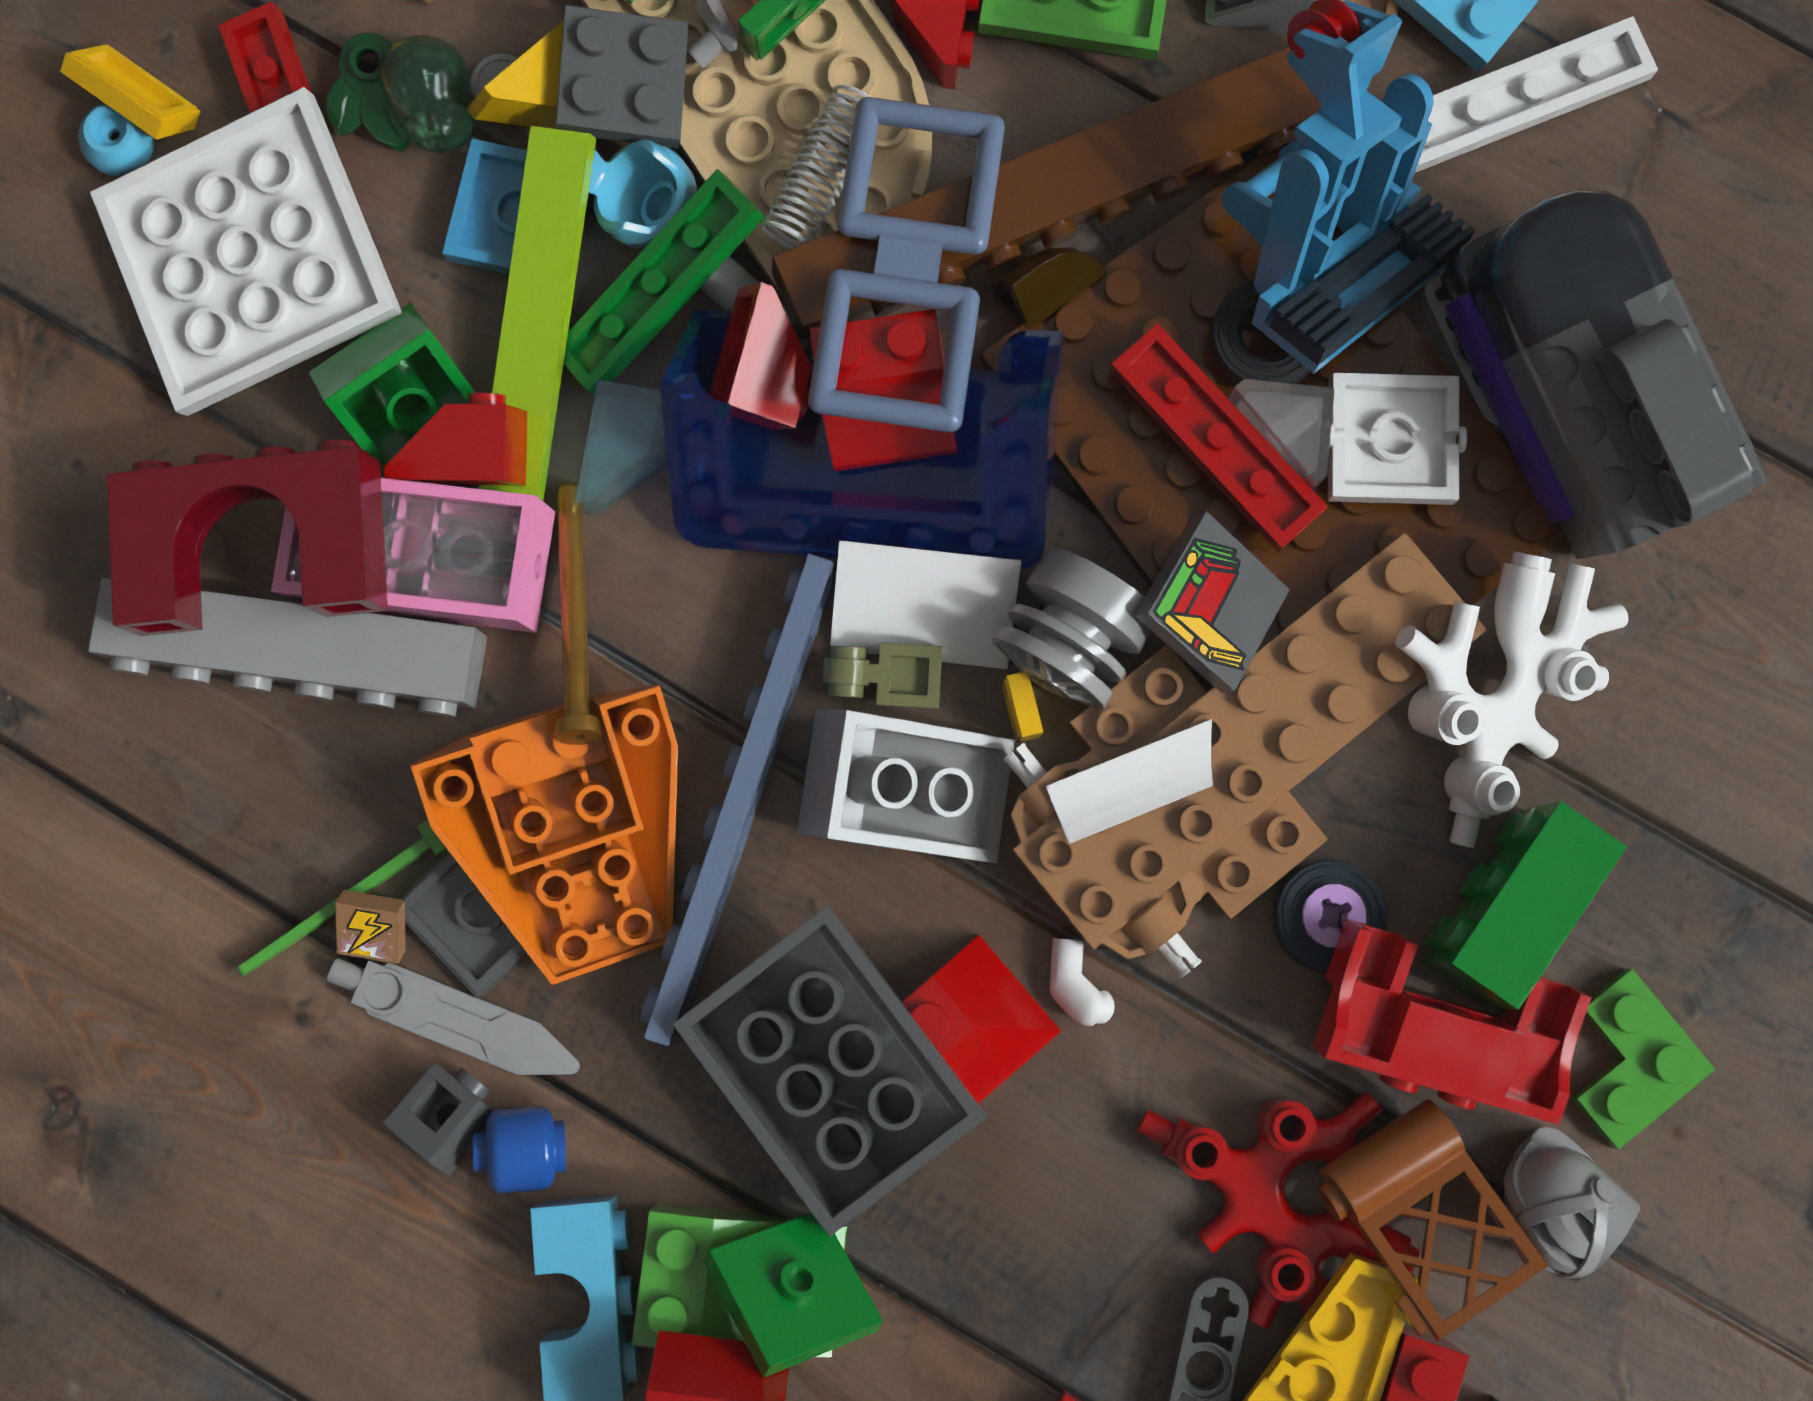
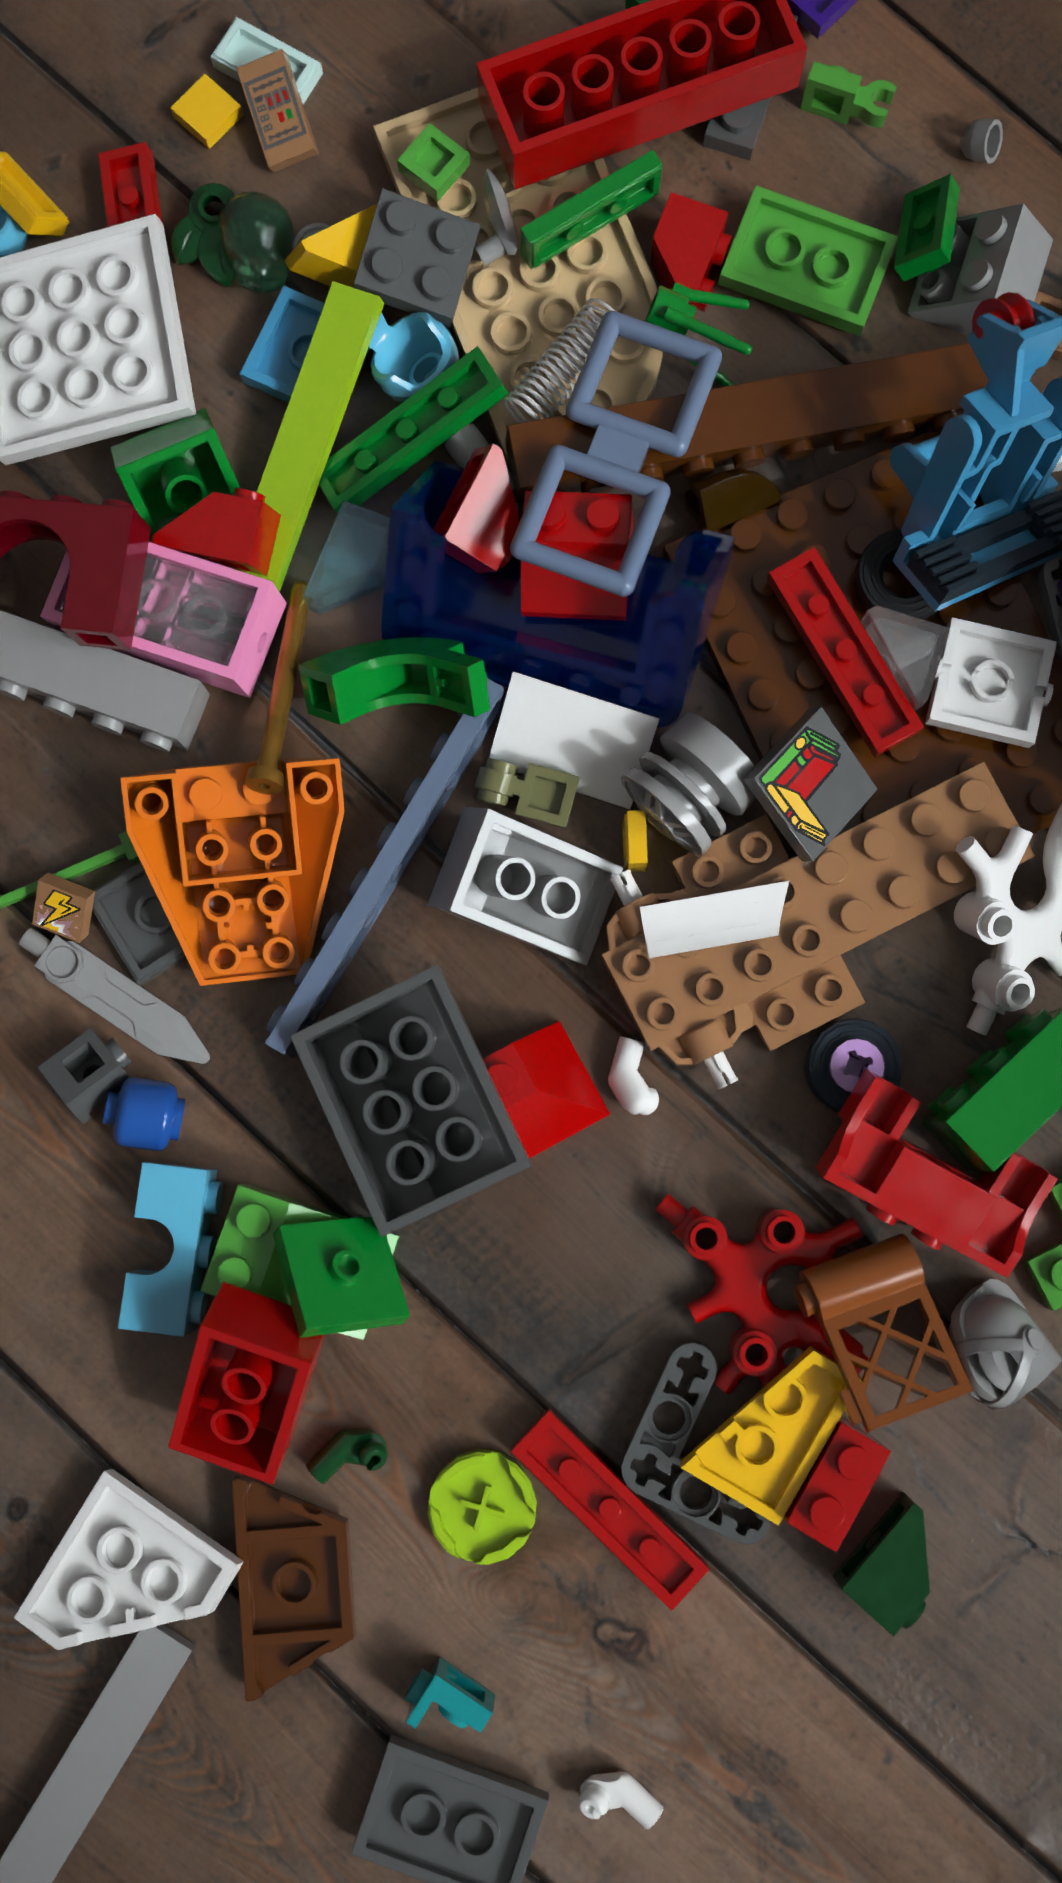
camera: 15 degrees right, 0 degrees up
(698, 569) = (394, 673): none -> green arch
(937, 84) = (673, 312): none -> green plant

